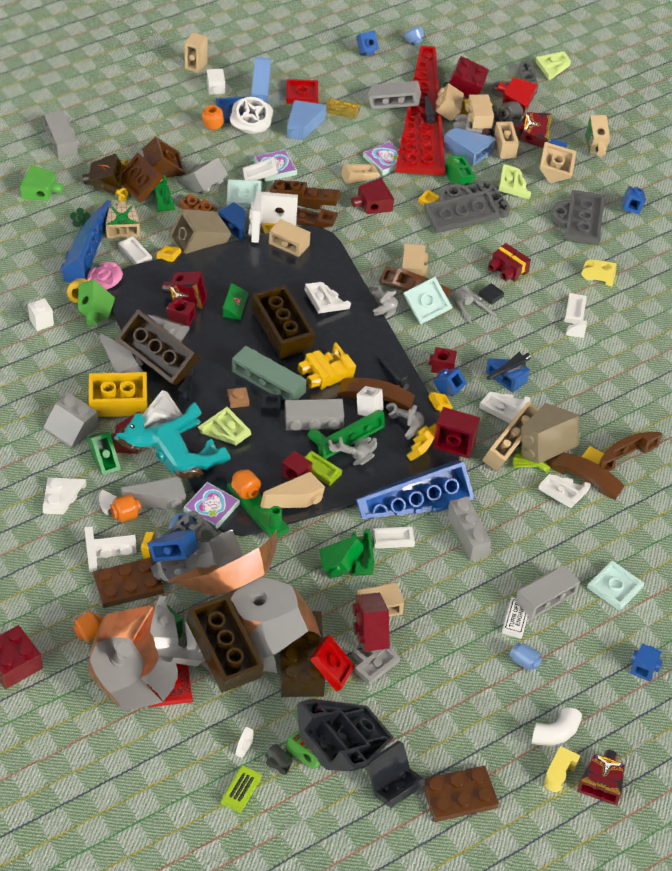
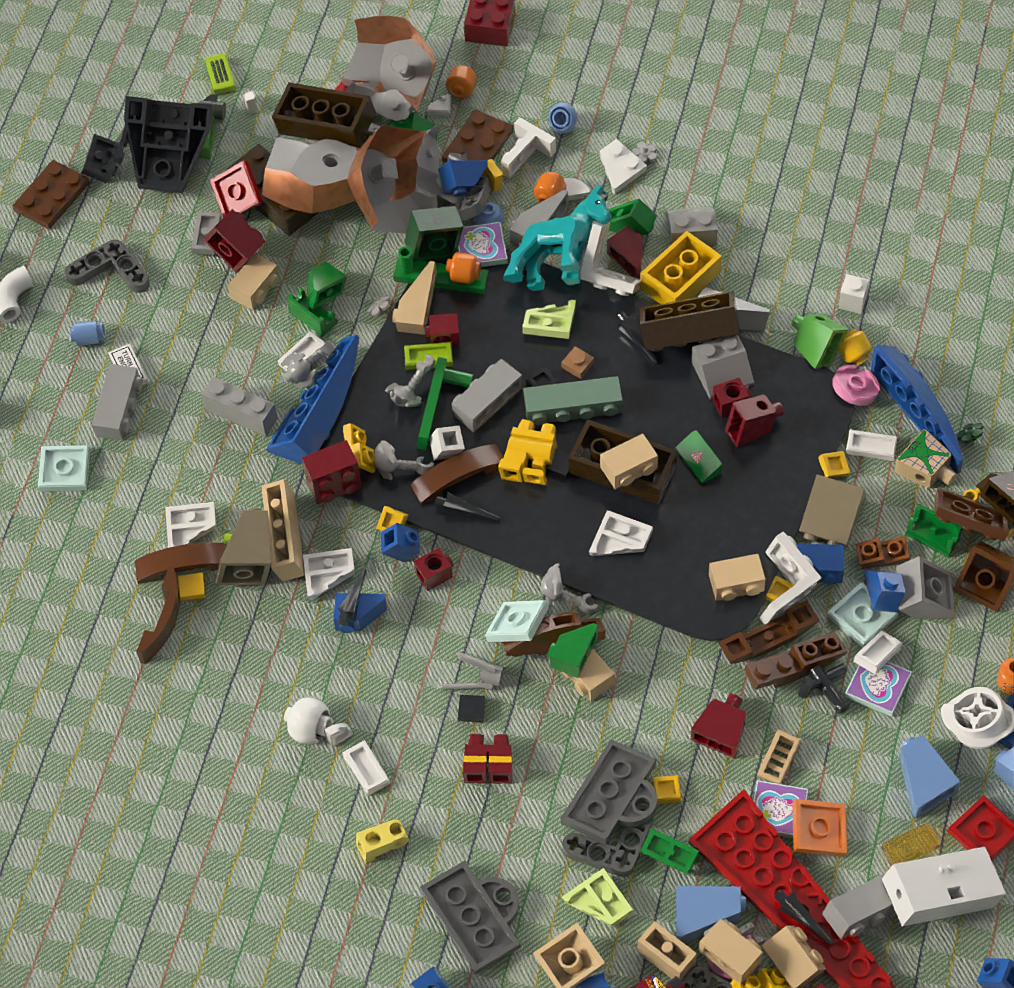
camera: 145 degrees right, 10 degrees up
(35, 490) = (645, 152): none -> light grey plant
(57, 544) = (562, 117): none -> medium blue cone
(222, 185) = (885, 590): none -> blue slope
(242, 514) = (434, 233): none -> dark green brick
(288, 298) = (629, 461): none -> tan brick
(302, 176) = (823, 681): none -> black piece
(314, 525) = (379, 306): none -> light grey plant
(354, 74) = (943, 886): none -> white brick
(378, 134) = (819, 827): none -> orange plate
(409, 513) = (300, 369): none -> light grey piece
(416, 257) = (573, 650): none -> green slope
(462, 704) = (108, 260): none -> dark grey beam
(588, 344) = (306, 719): none -> white plant

